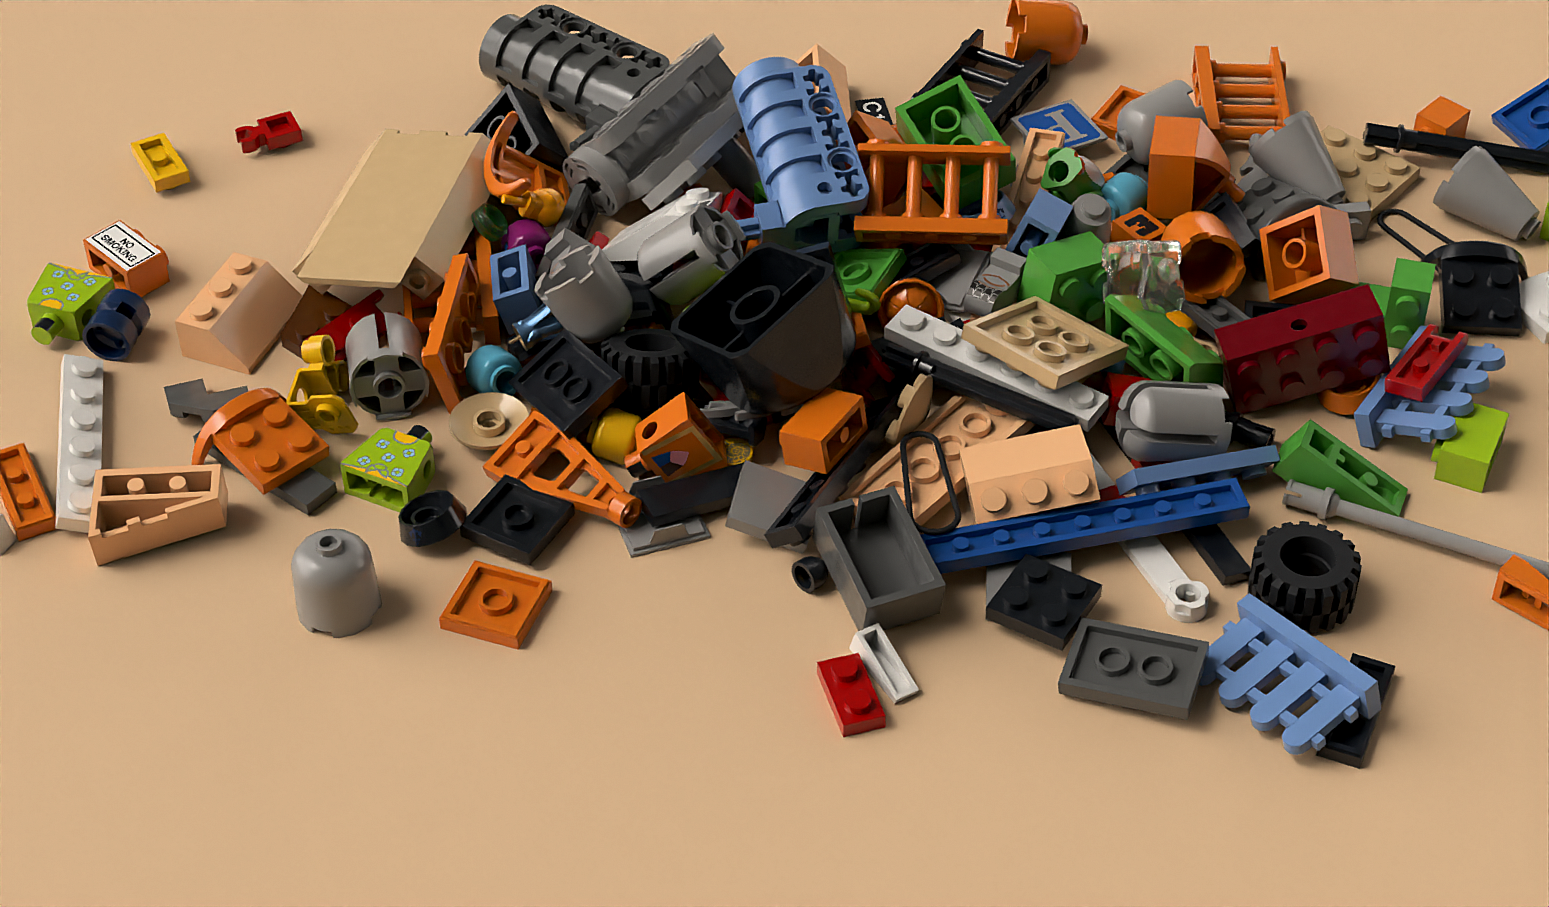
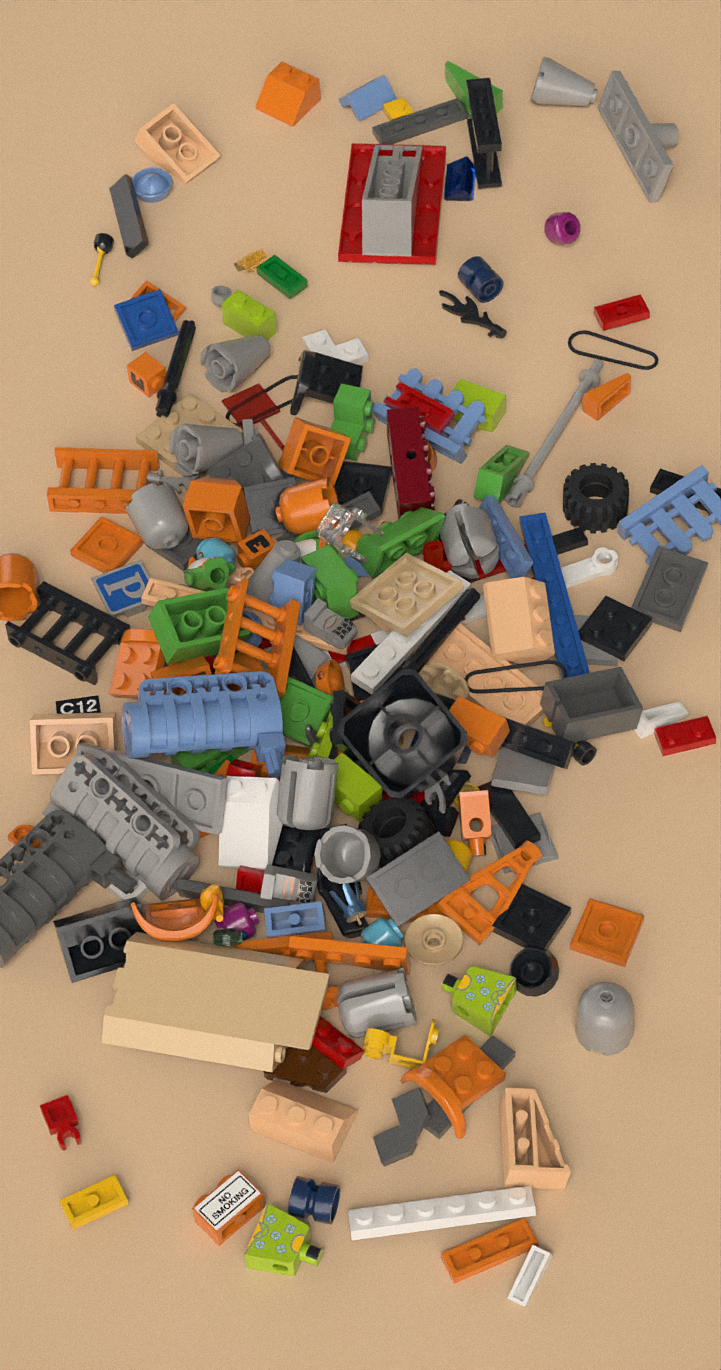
camera: 85 degrees left, 10 degrees up
(1412, 228) = (255, 405): none -> clear red piece

